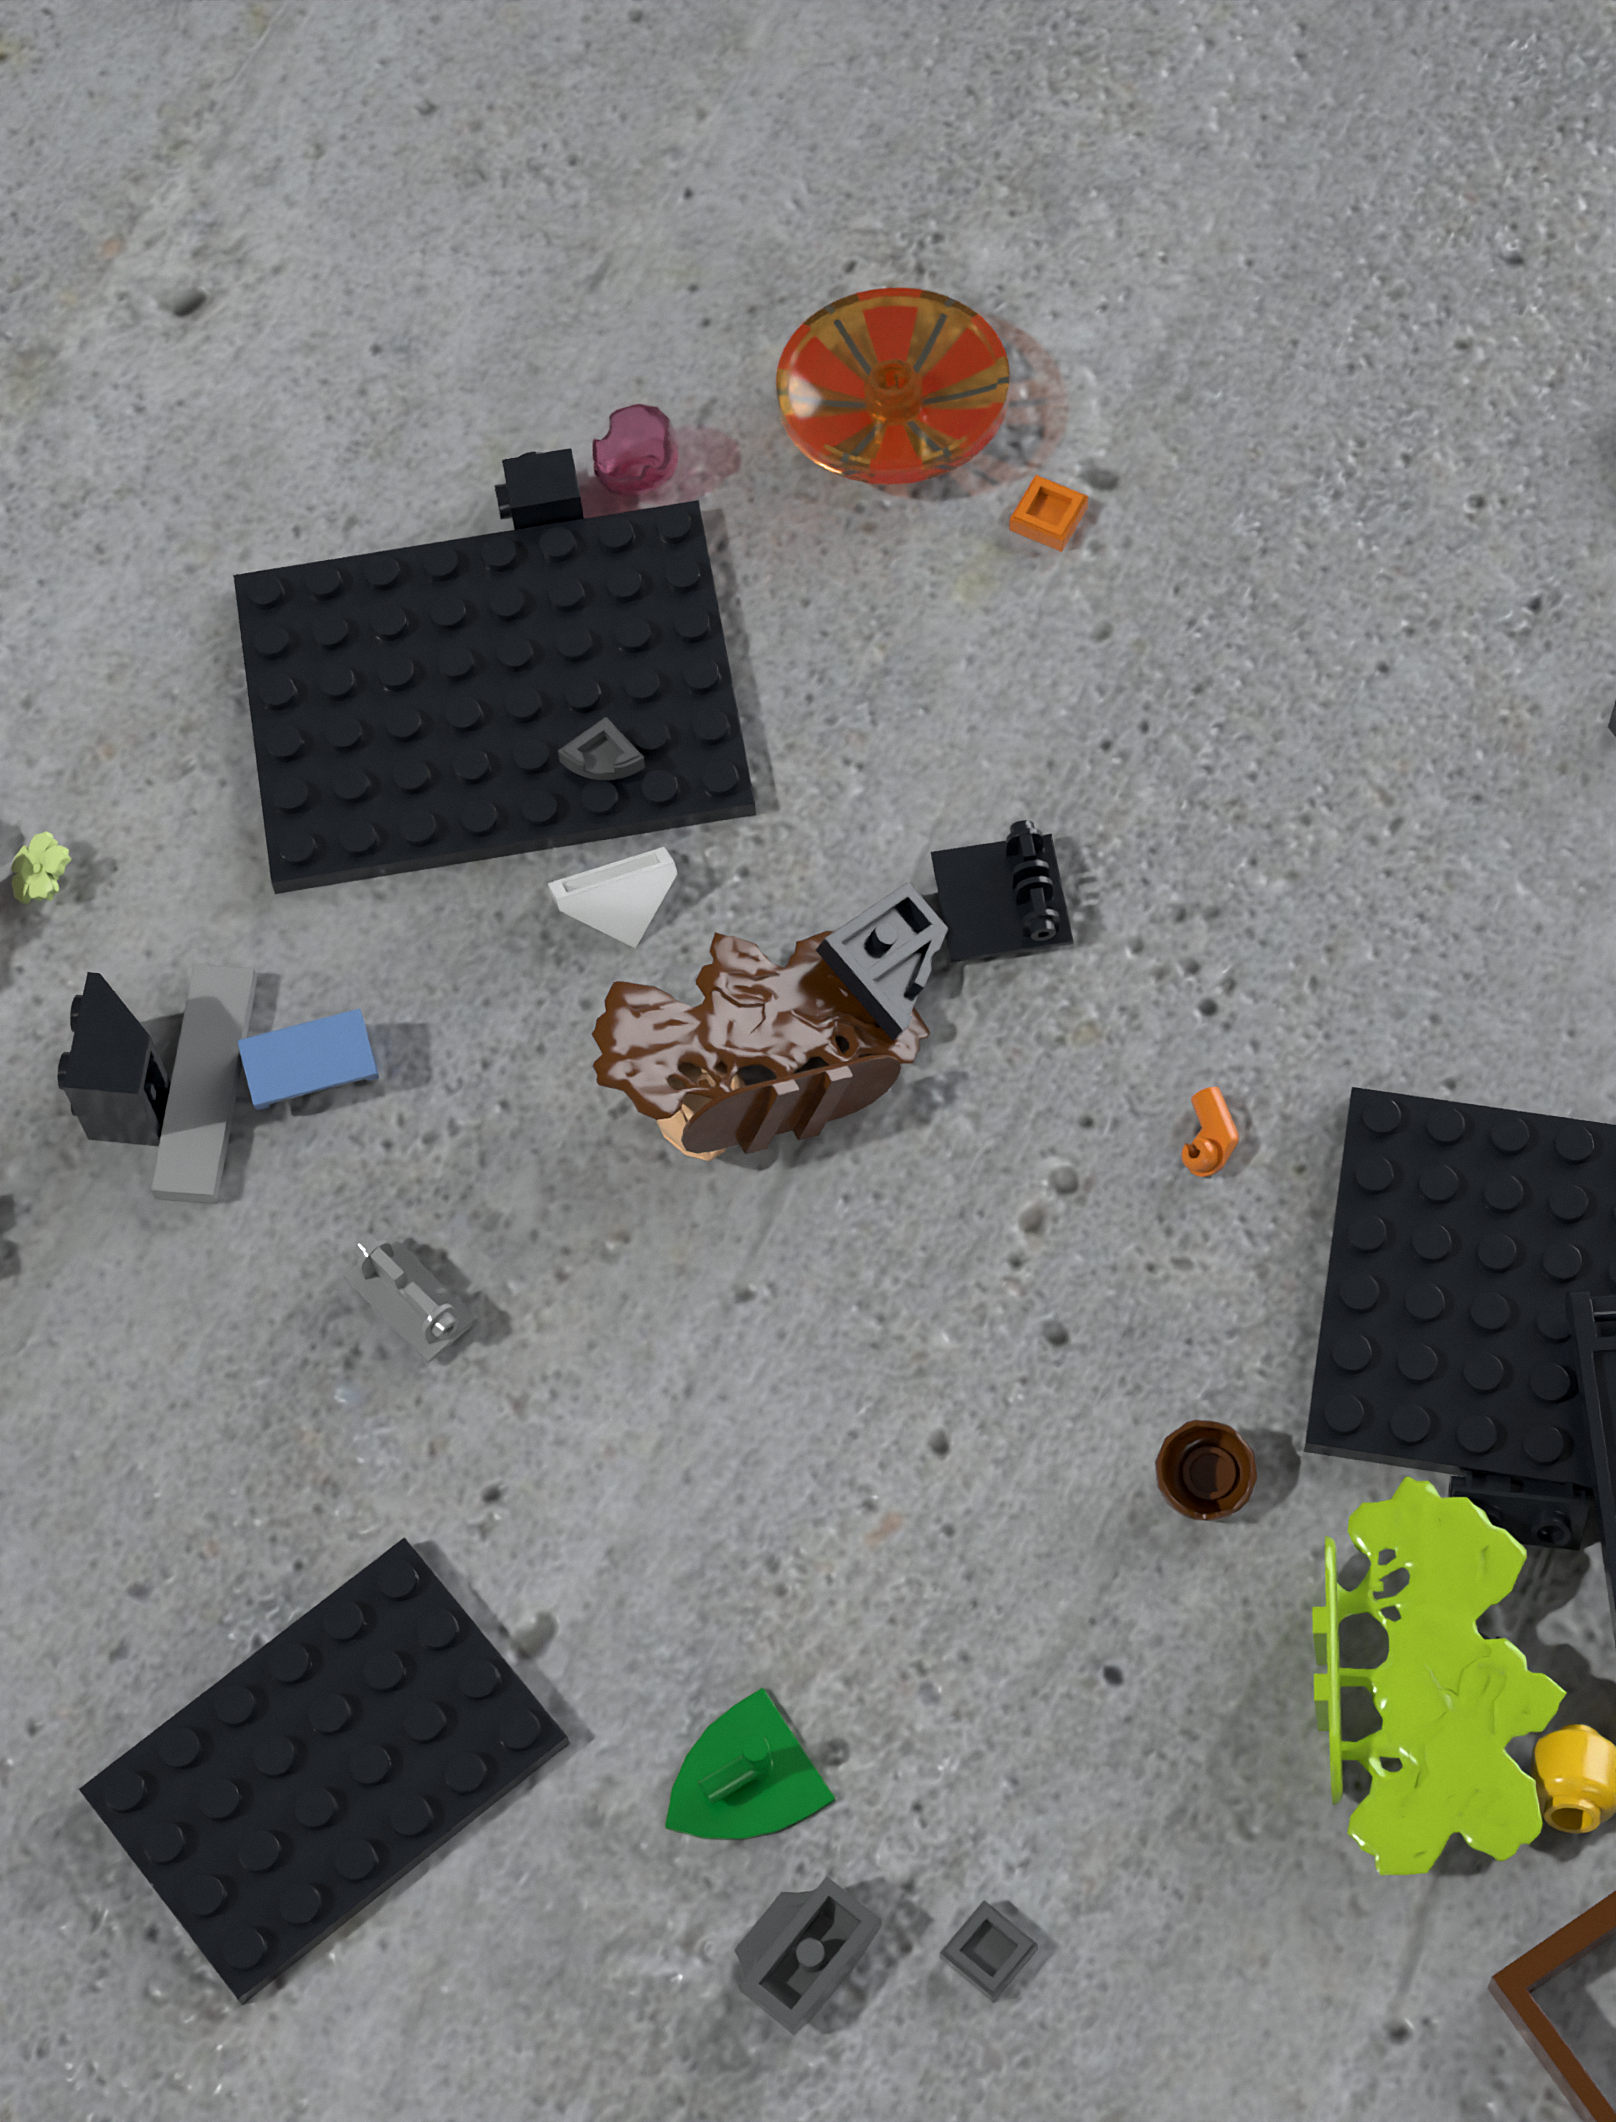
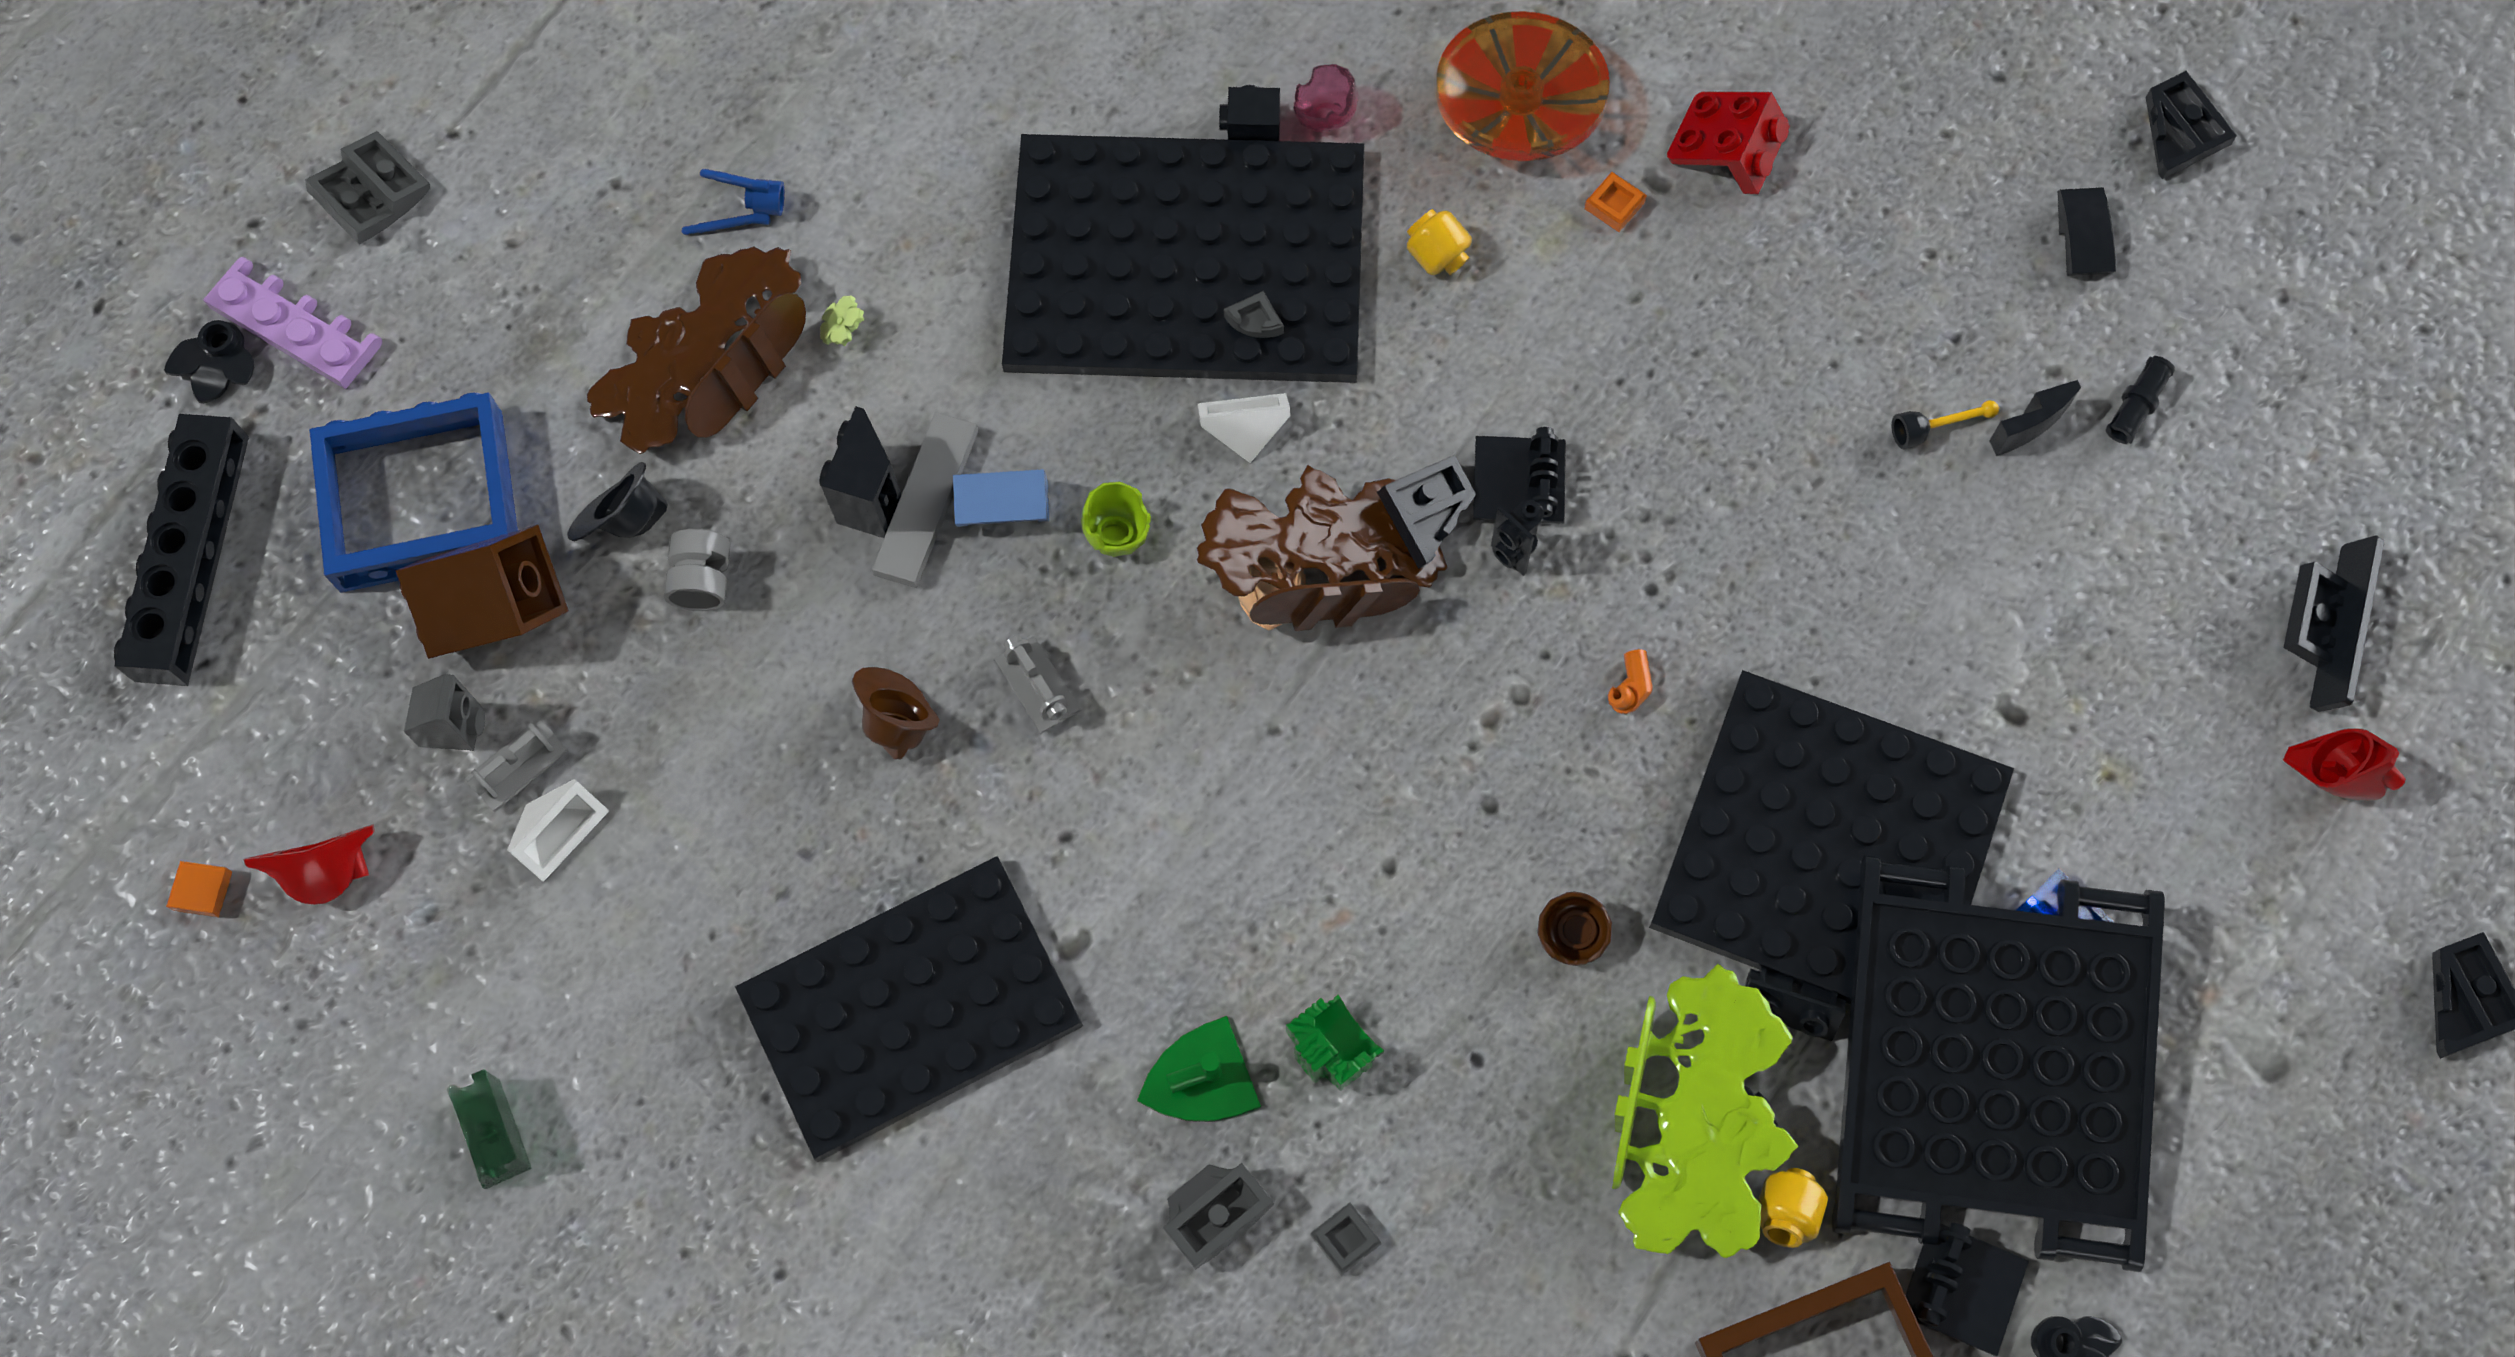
camera: 10 degrees right, 5 degrees up
(220, 1372) = (893, 710): none -> reddish brown piece
(470, 1056) = (1115, 519): none -> lime hair
(826, 609) = (1439, 242): none -> yellow head
(912, 1692) = (1331, 1043): none -> green hair
(1013, 968) = (1516, 533): none -> black hinge
(1183, 391) = (1733, 132): none -> red bracket
(1505, 728) = (1913, 427): none -> black hinge

